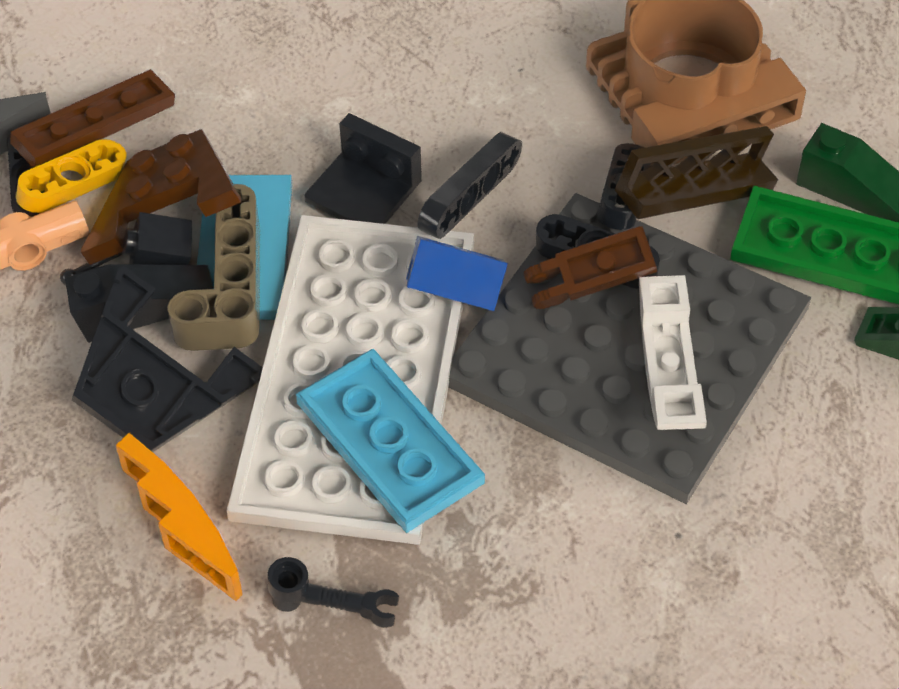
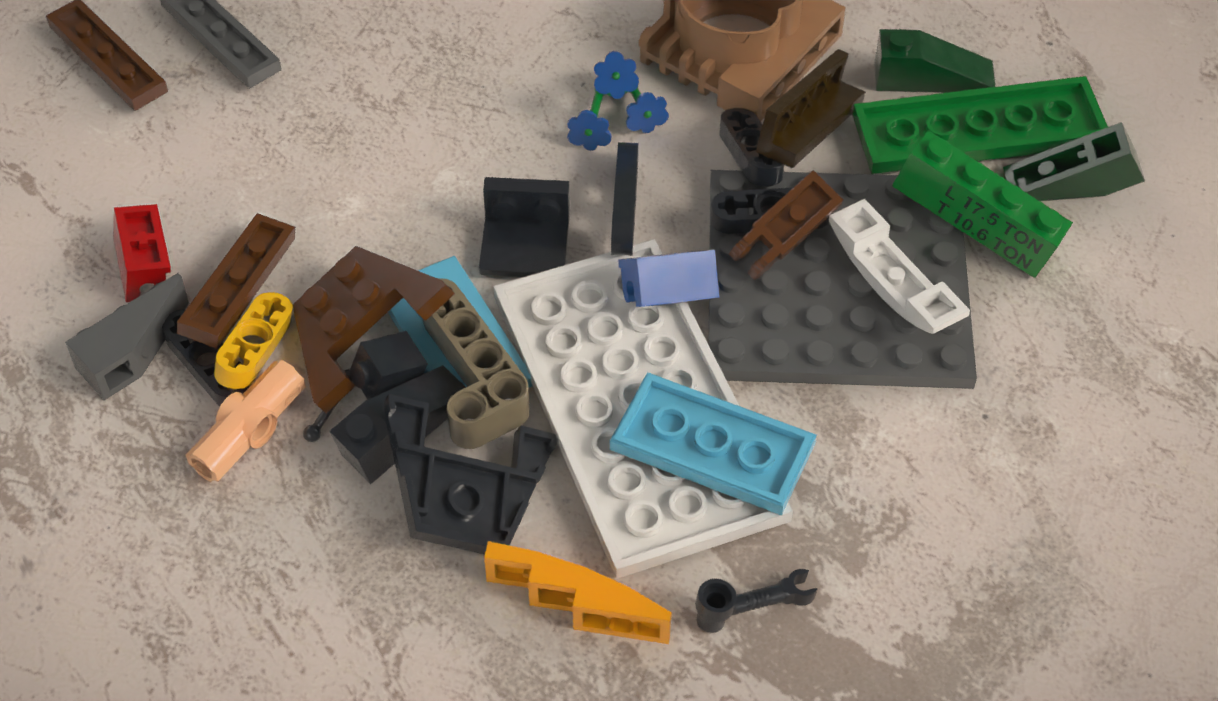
camera: 30 degrees left, 0 degrees up
(35, 57) = (139, 248): none -> red hinge
(543, 75) = (615, 79): none -> blue plant
(802, 330) = (982, 204): none -> green brick

